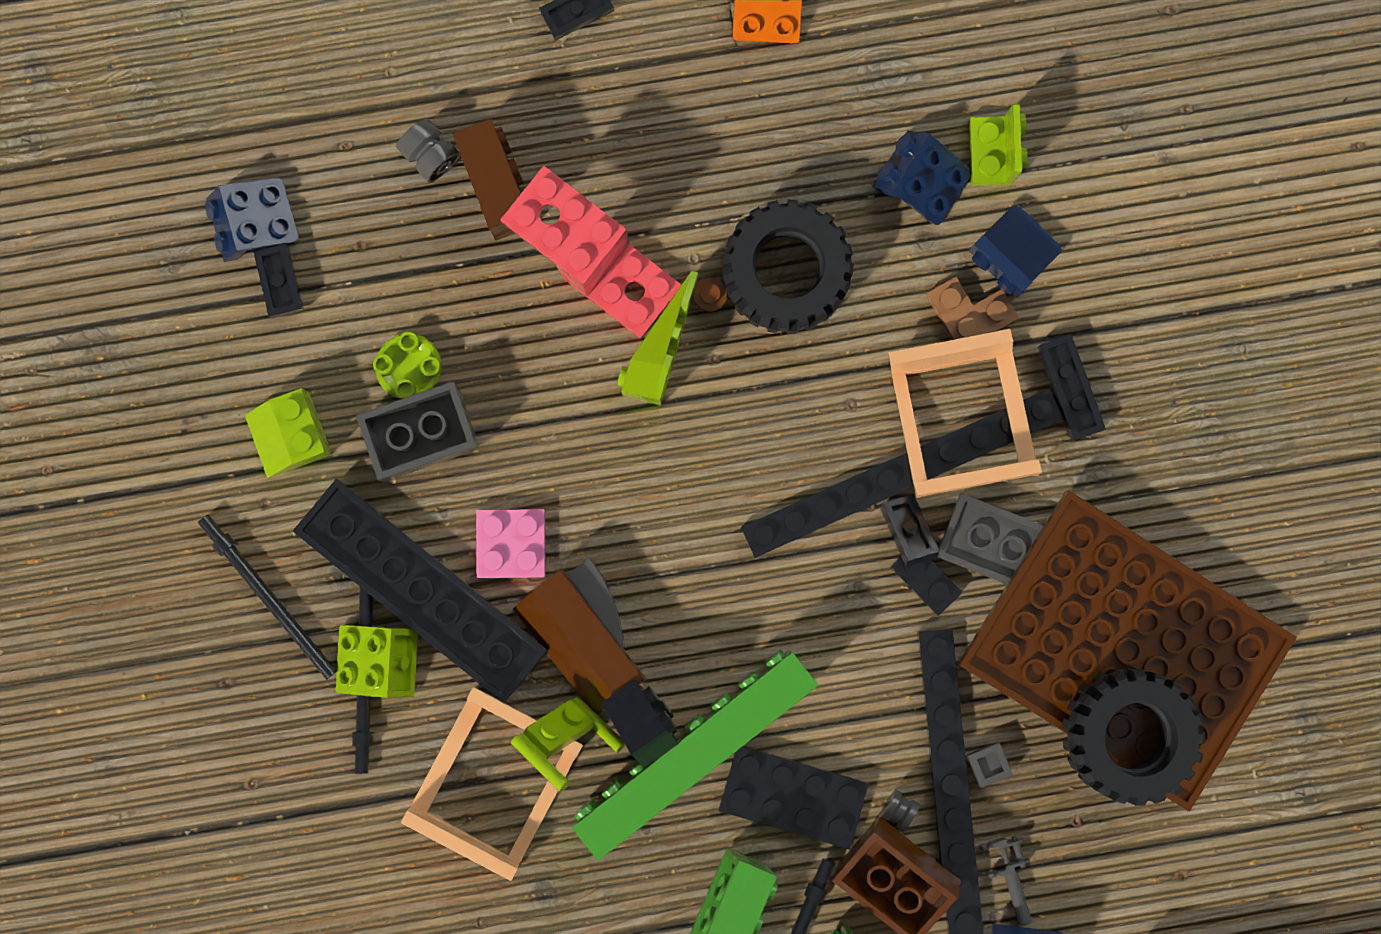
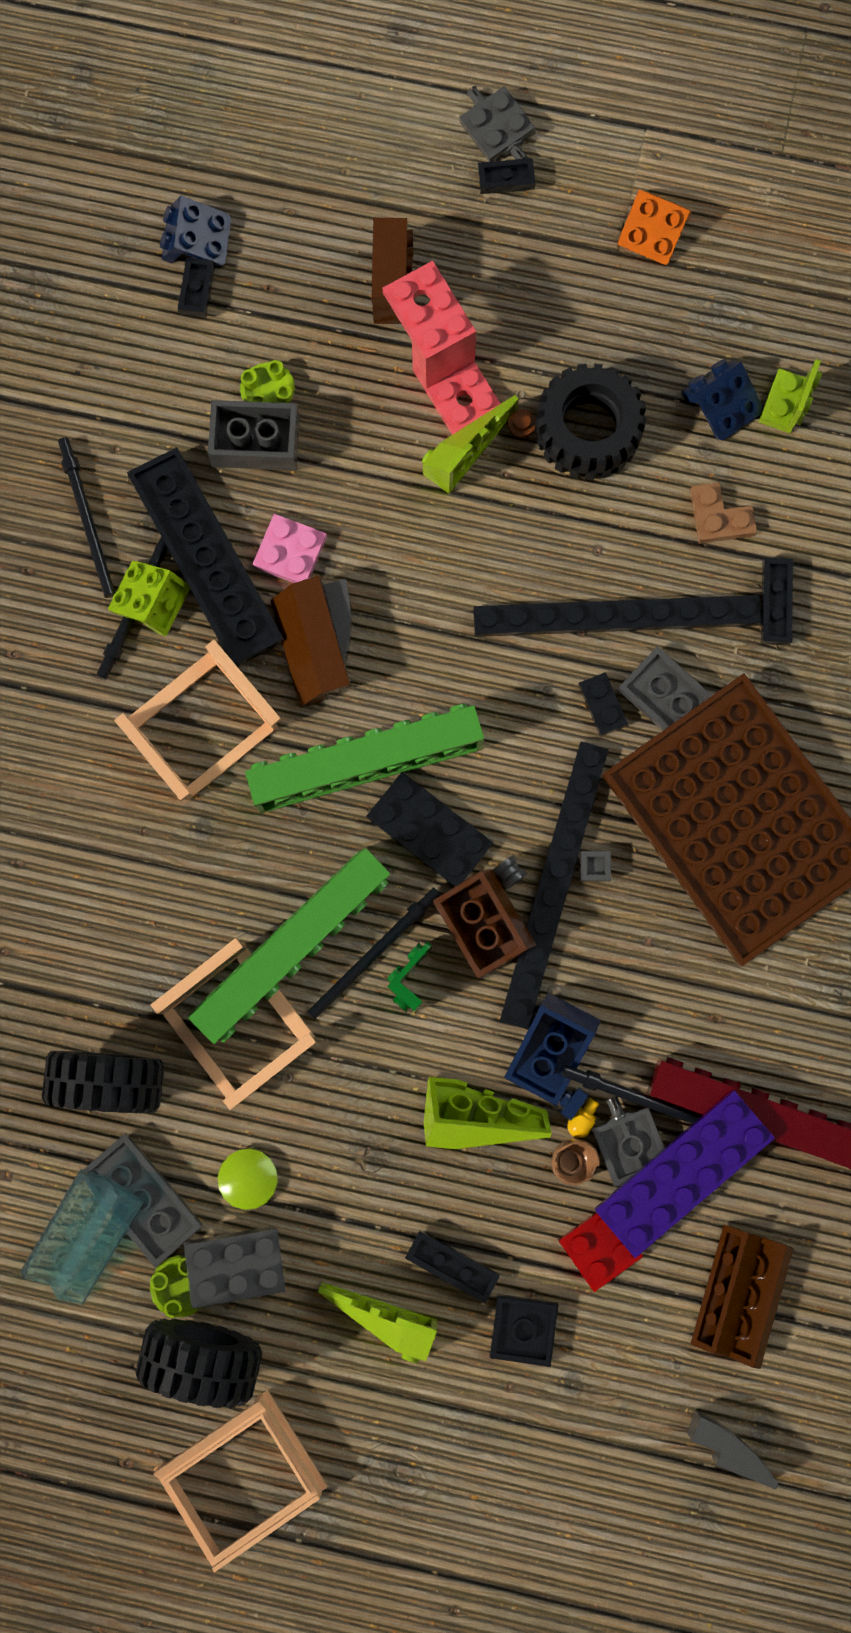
camera: 25 degrees right, 5 degrees down
(287, 432) = (155, 400): lime slope -> none
(424, 145) = (349, 233): dark grey wheel -> none
(559, 730) = (266, 697): lime plate -> none
(642, 722) = (333, 713): black brick -> none
(909, 530) = (605, 658): black plate -> none
(954, 353) = (690, 537): light nougat piece -> none
(1011, 876) = (578, 962): dark grey piece -> none
(1015, 251) = (773, 480): dark blue bracket -> none
(1176, 745) = (757, 868): black tyre -> none

